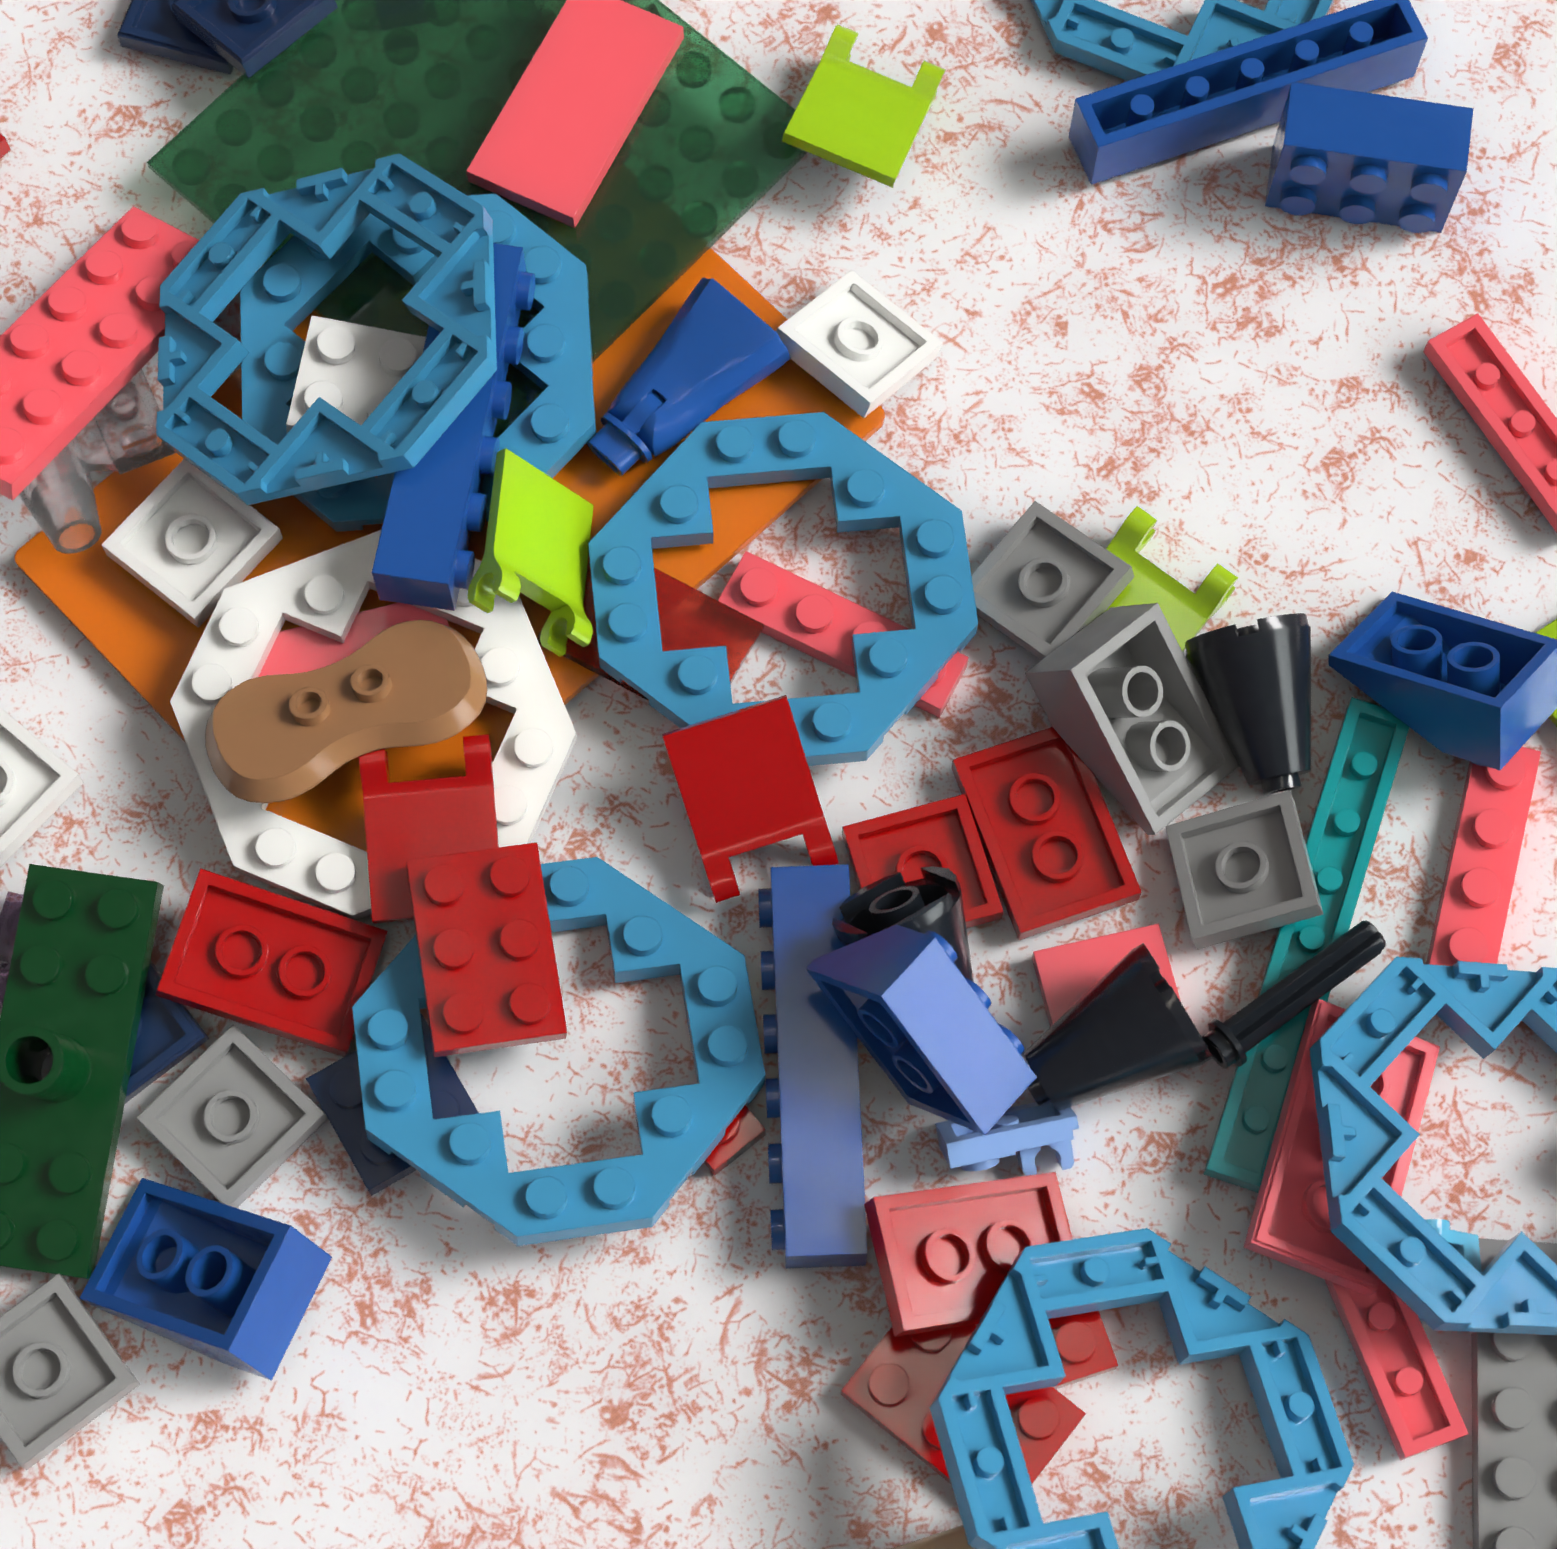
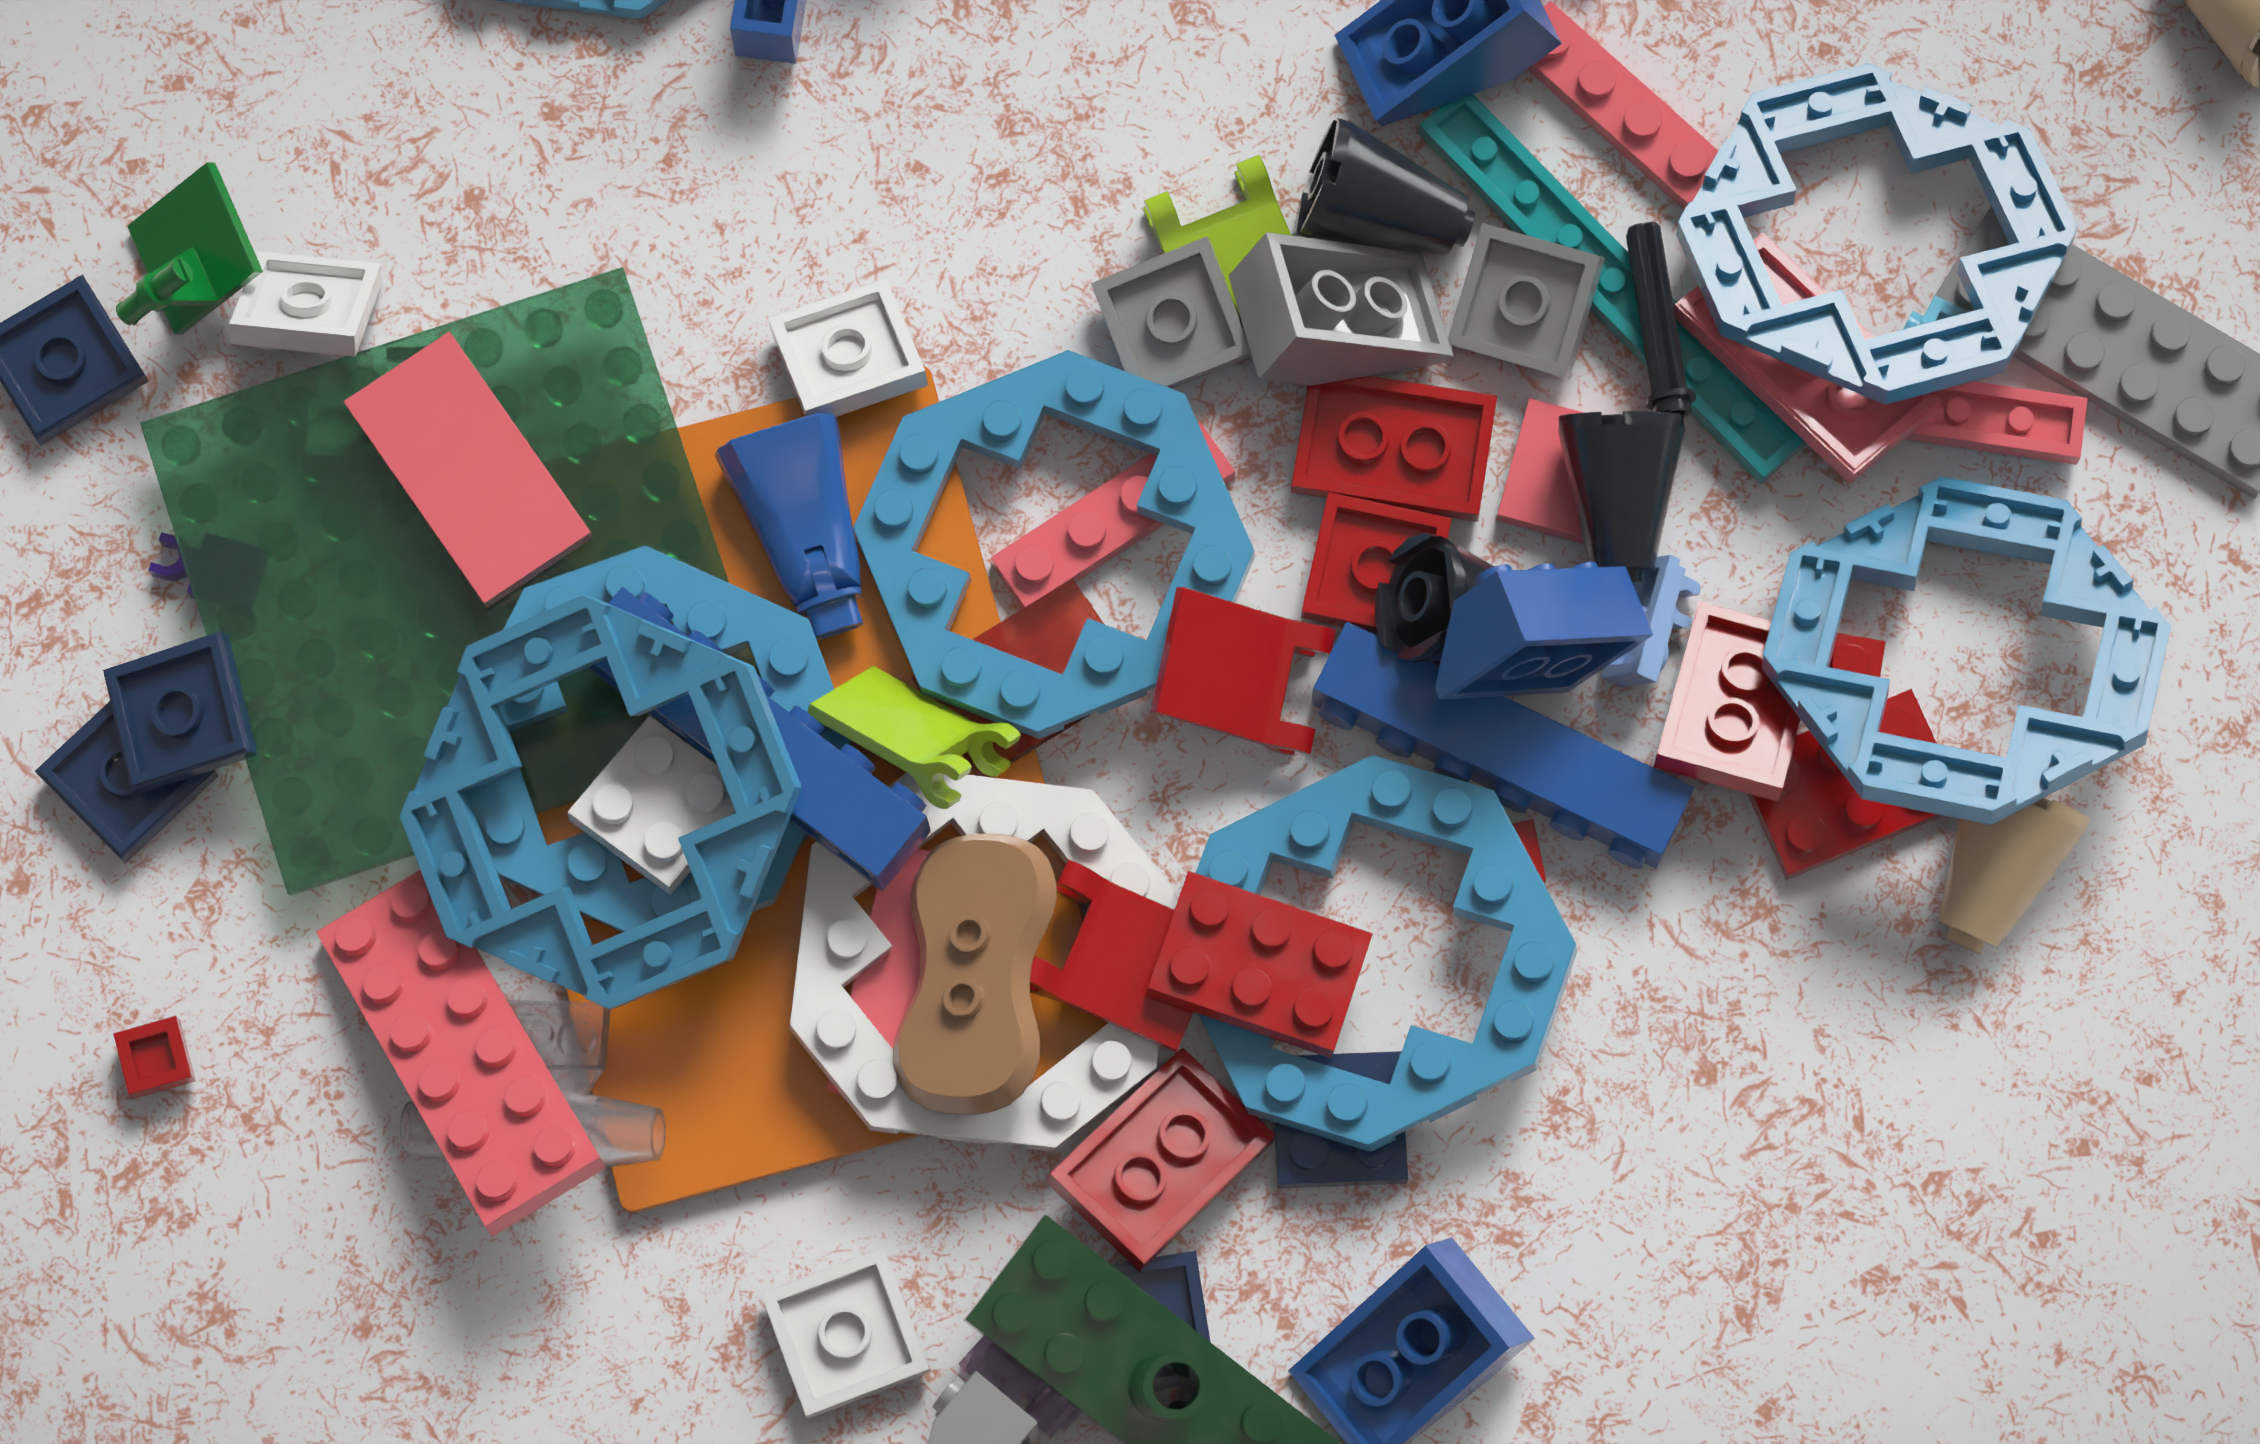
camera: 60 degrees left, 5 degrees up
(191, 541) = (713, 1037): white plate -> none
(232, 1118) = (1280, 1264): light grey plate -> none
(860, 114) = (621, 225): lime flag -> none

